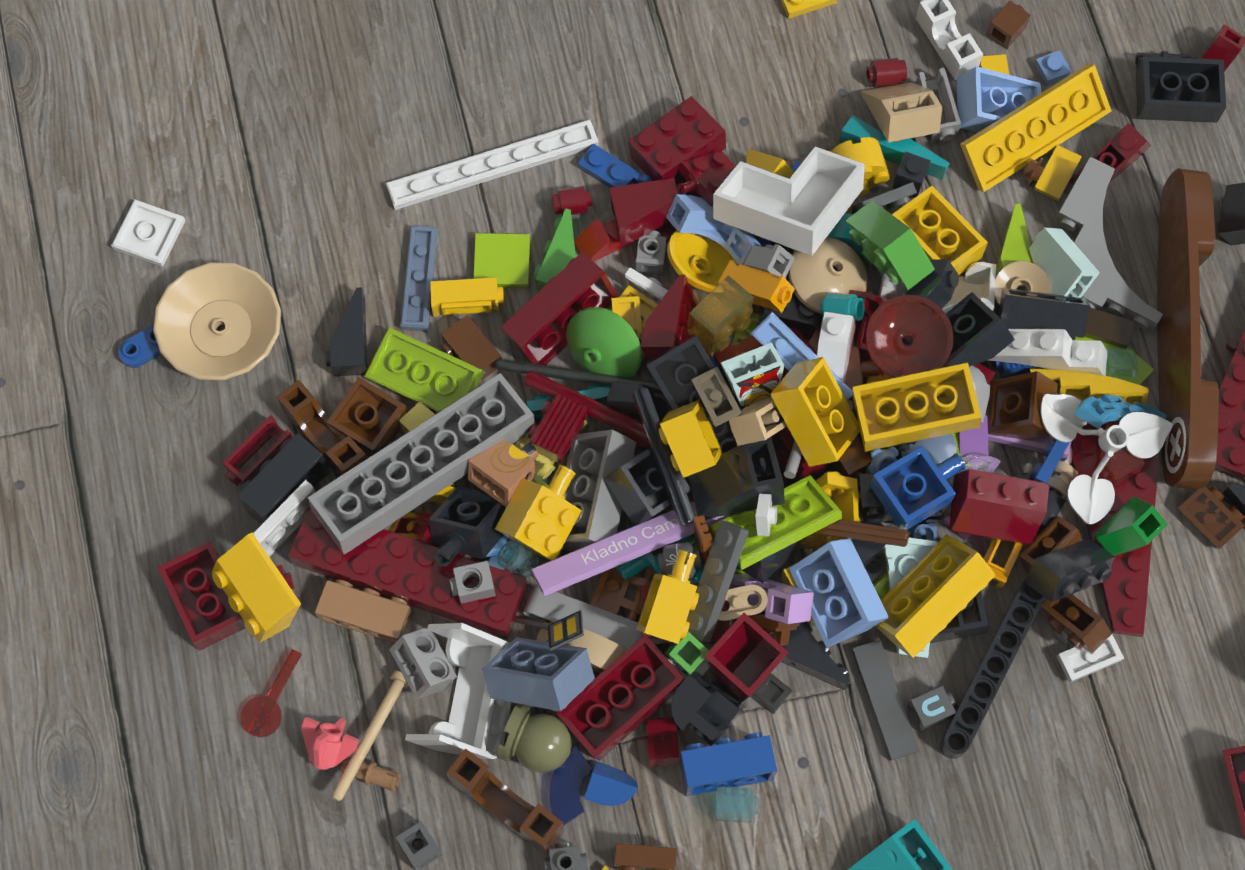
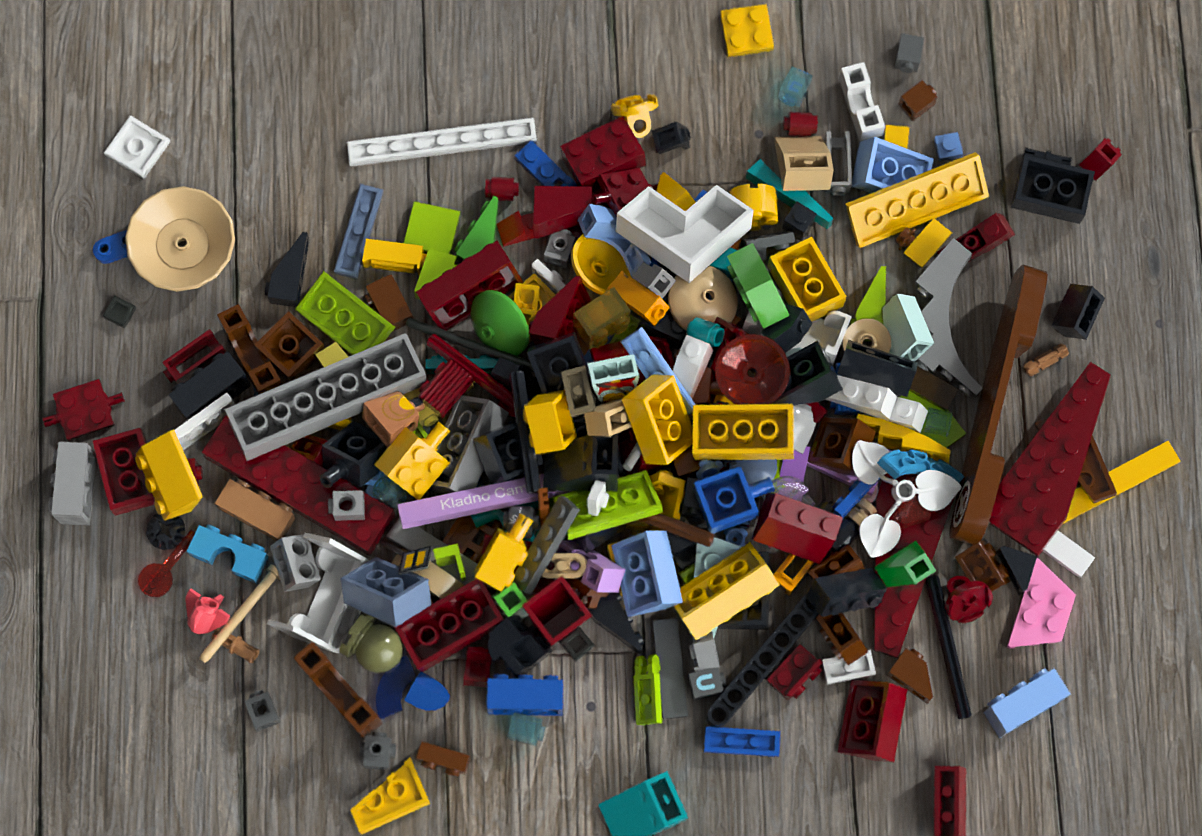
camera: 10 degrees right, 5 degrees up
(140, 535) = (83, 409): none -> dark red plate
(142, 621) = (73, 483): none -> light grey brick
(162, 418) = (119, 312): none -> pearl dark grey tile
(262, 668) = (162, 541): none -> black gear
(317, 660) = (209, 543): none -> dark azure arch
(514, 297) = (434, 266): none -> lime slope
(606, 617) = (450, 555): none -> lime panel
(704, 88) = (636, 108): none -> yellow tile
(747, 112) = (671, 137): none -> black bracket
(866, 731) = (647, 690): none -> lime hinge
(871, 34) = (795, 87): none -> clear light blue brick
(922, 673) = (704, 653): none -> light grey brick
(989, 768) = (742, 741): none -> blue plate
(1030, 675) = (794, 672): none -> dark red bracket
(1133, 713) = (872, 720): none -> dark red slope
(1166, 651) = (912, 674): none -> reddish brown slope
(1197, 613) = (948, 647): none -> black axle
(1208, 552) = (967, 600): none -> dark red tile
(1220, 272) = (1046, 359): none -> medium nougat axle

